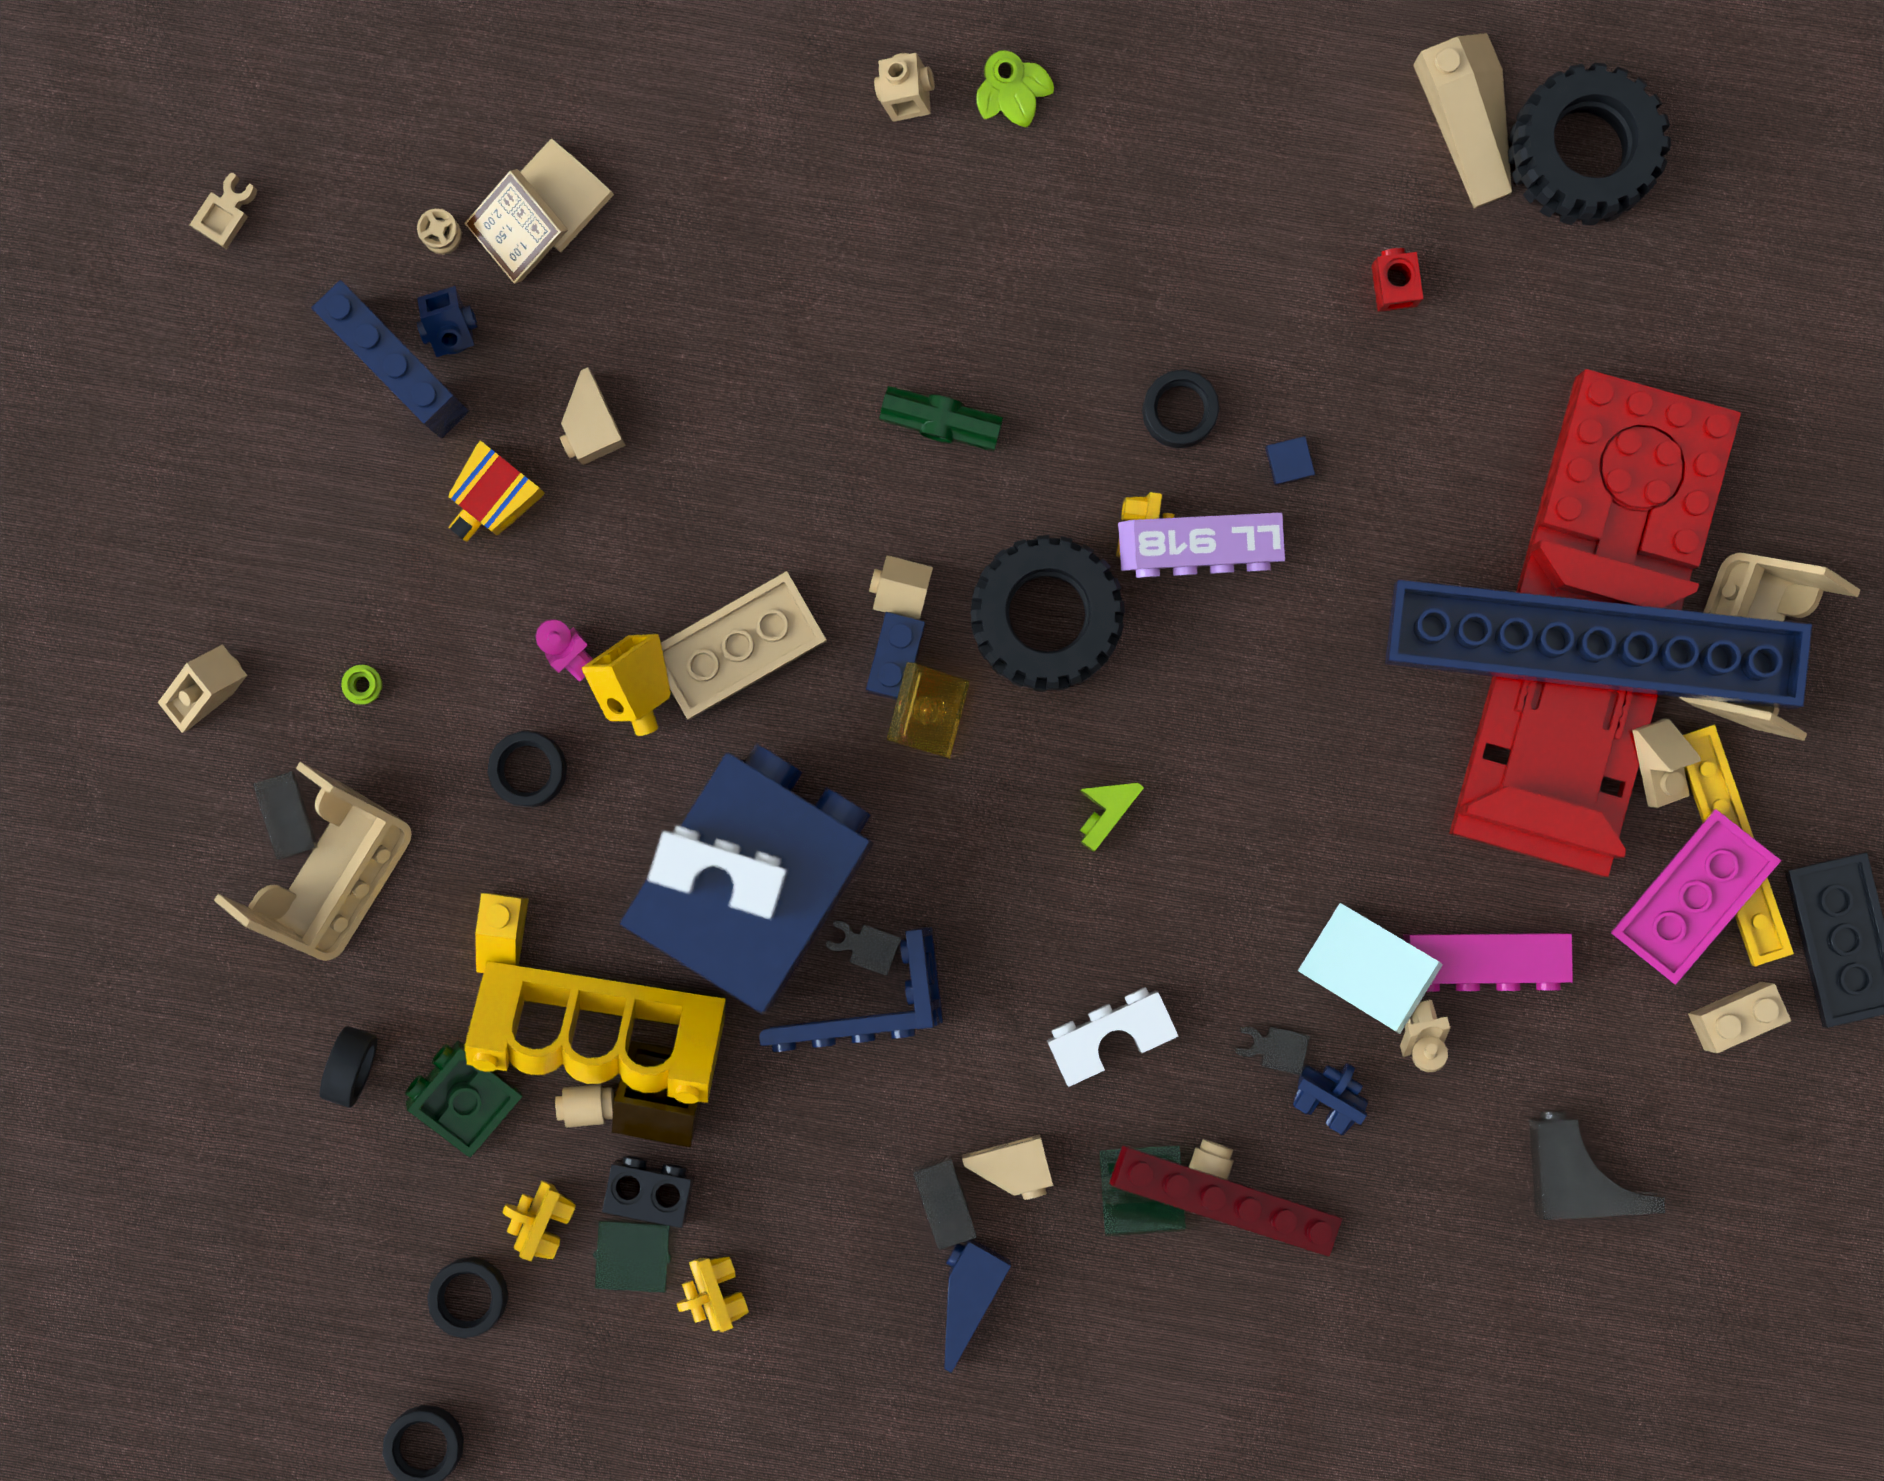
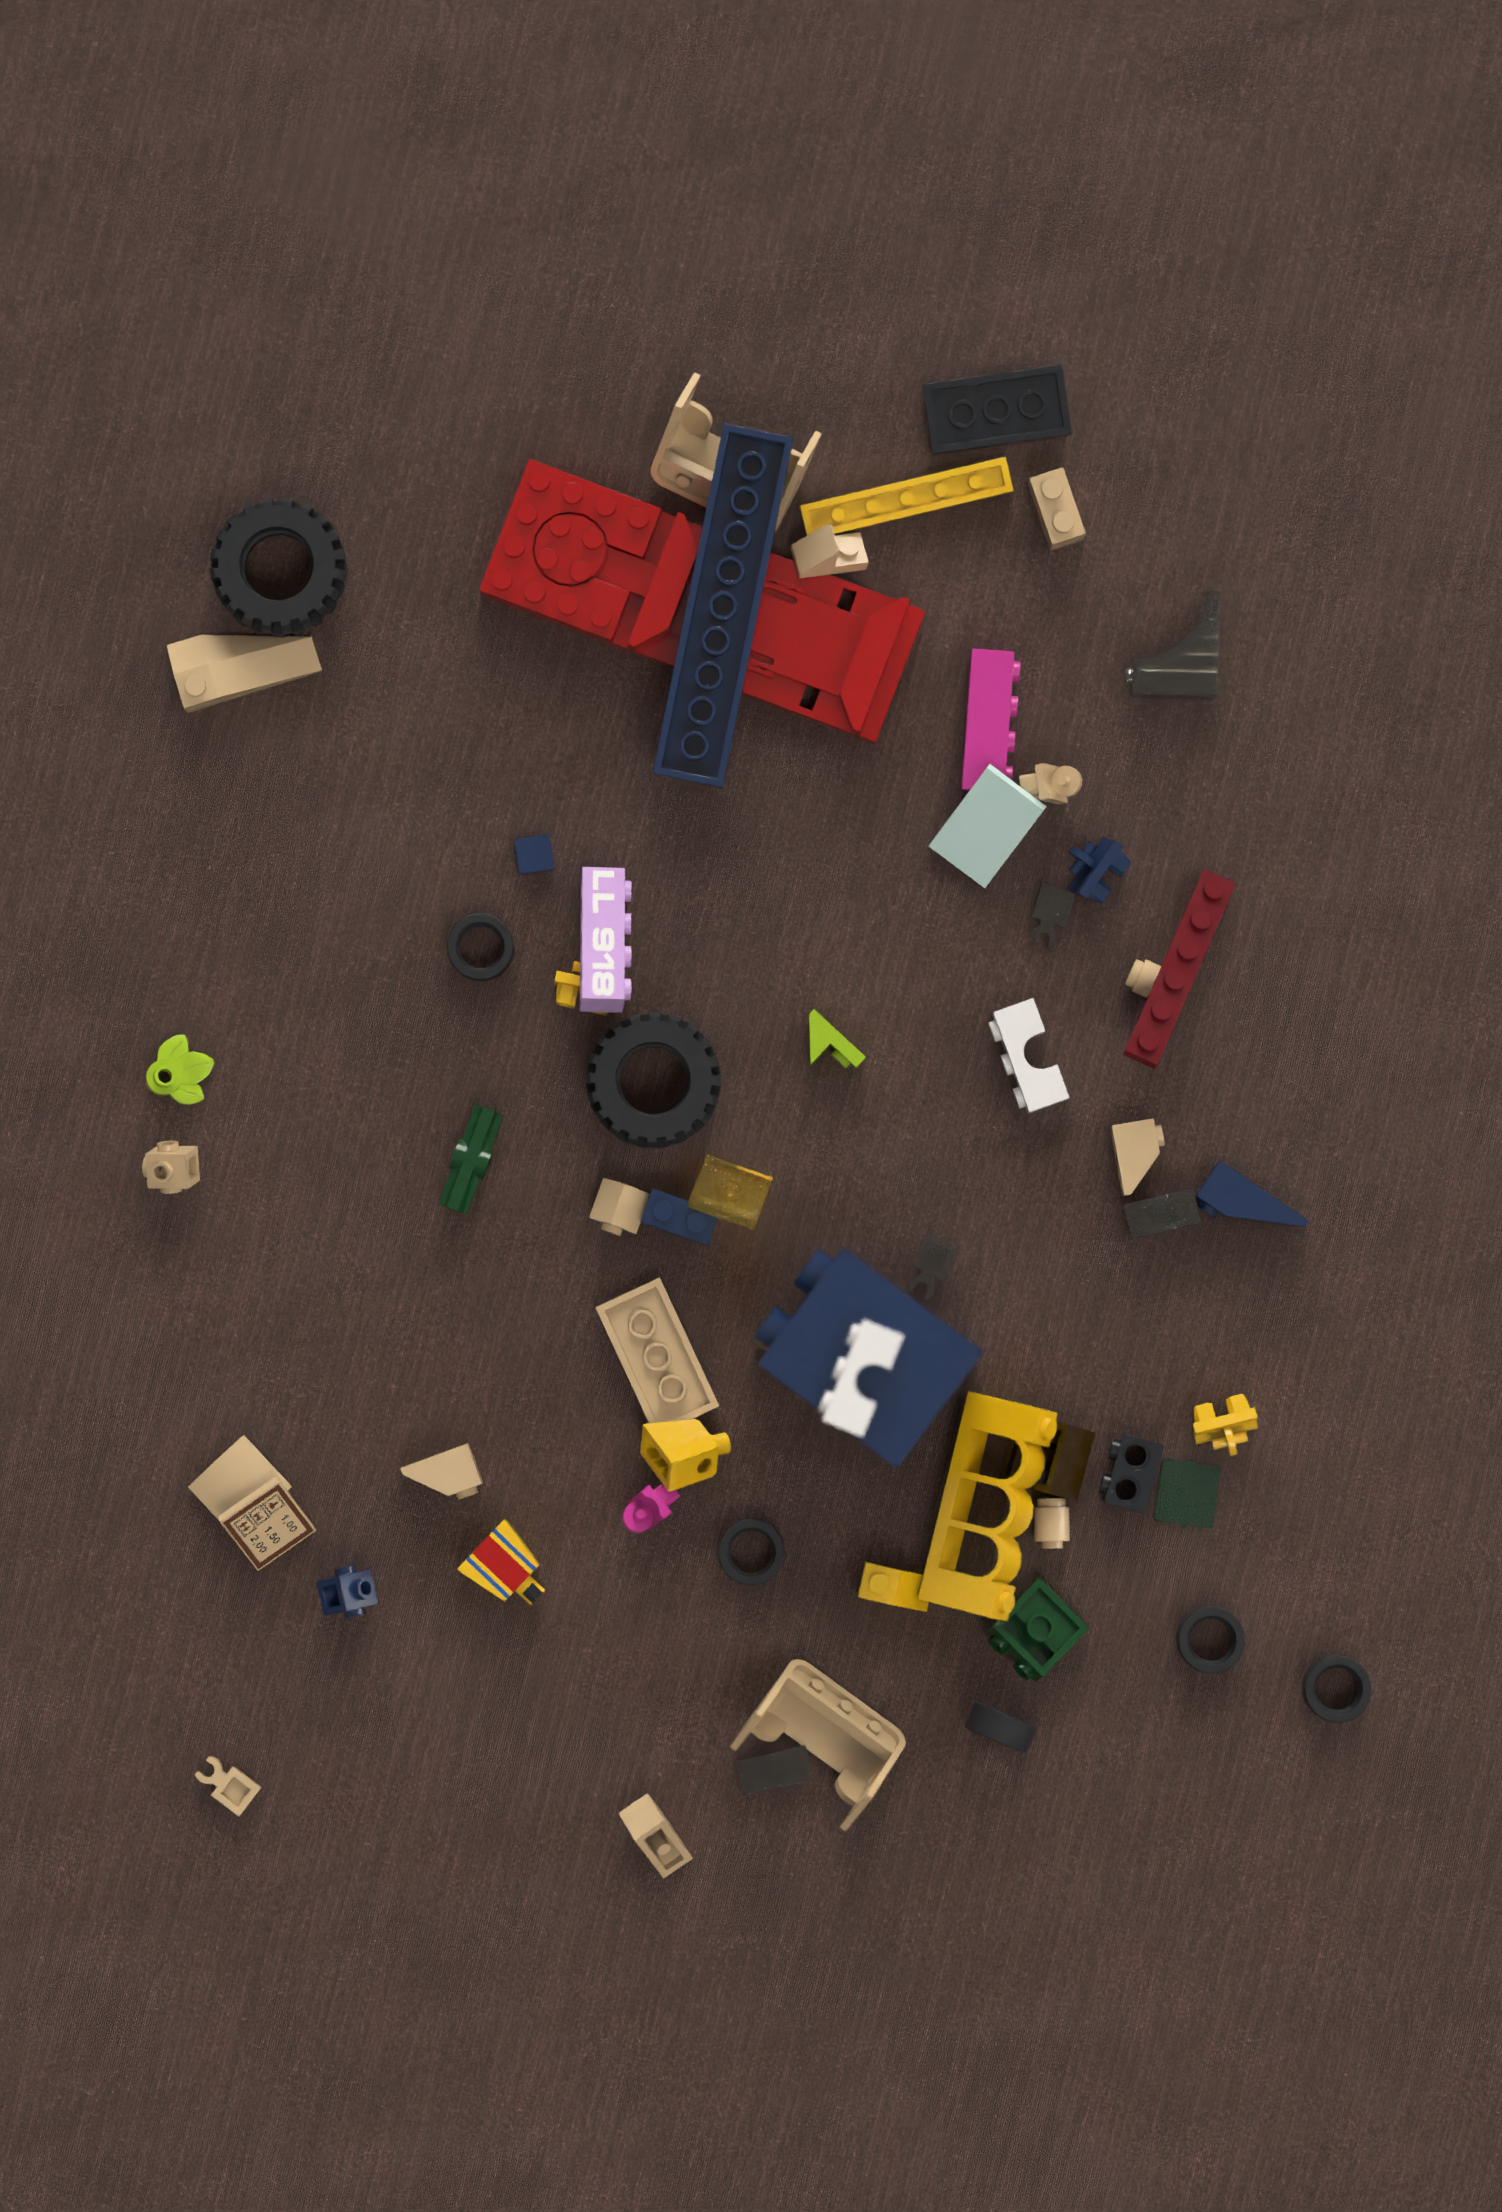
camera: 90 degrees left, 0 degrees up
(350, 680) = (657, 1704): lime plate -> none
(390, 359) = (379, 1641): dark blue arch -> none
(434, 223) = (258, 1595): tan wheel -> none
(533, 1238) = (1147, 1577): yellow hips -> none
(921, 991) = (975, 1218): dark blue bracket -> none
(1131, 1213) = (1183, 1050): clear green slope -> none
(1394, 297) = (395, 756): red brick -> none
(1695, 896) = (948, 537): dark pink plate -> none

